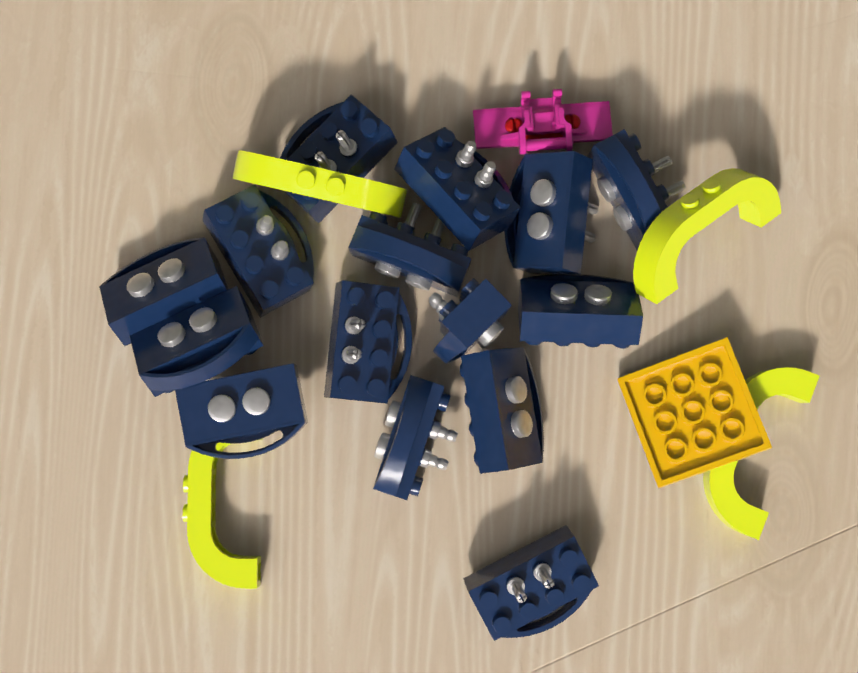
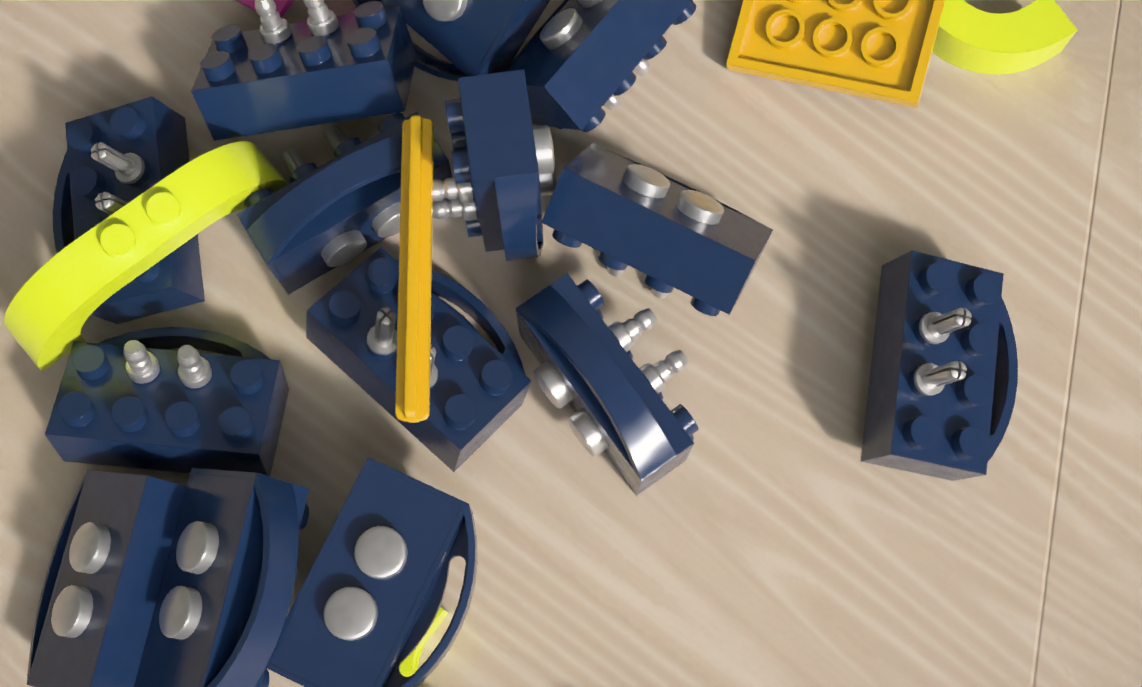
camera: 55 degrees left, 10 degrees down
(391, 320) = (415, 271): none -> yellow axle

